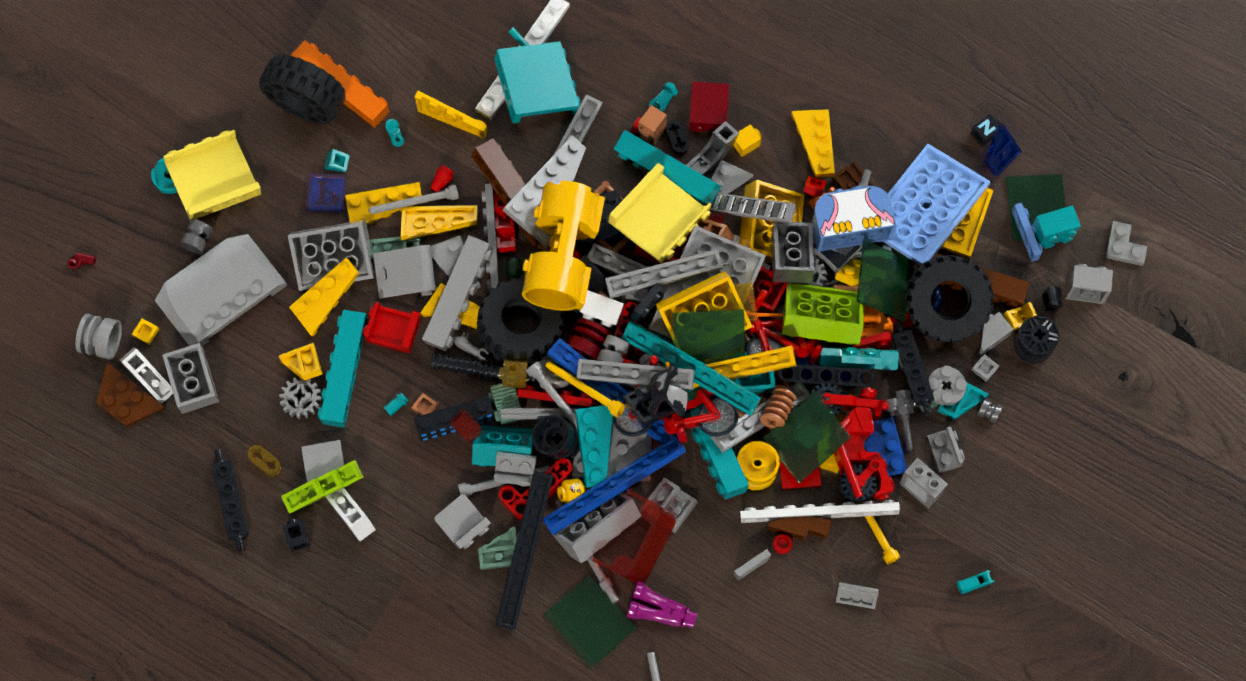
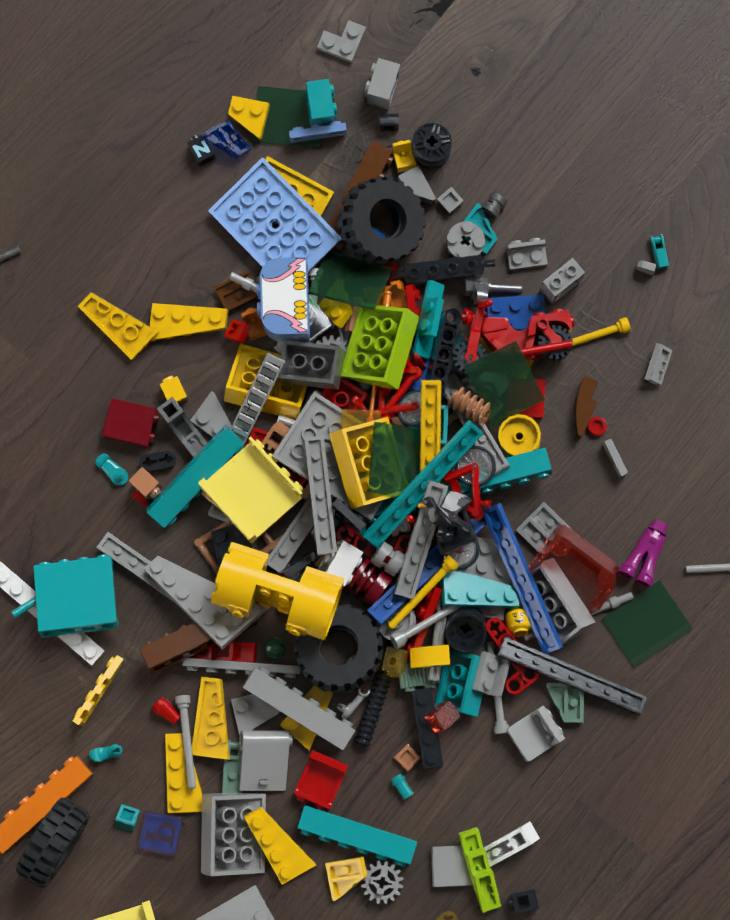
camera: 85 degrees left, 10 degrees up
(523, 405) = (429, 656): none -> yellow slope
(799, 85) = (118, 325): none -> yellow wing
(828, 510) = (574, 378): white plate -> none
(955, 570) = (646, 267): none -> light grey tile
(1031, 169) = (250, 114): none -> yellow wing

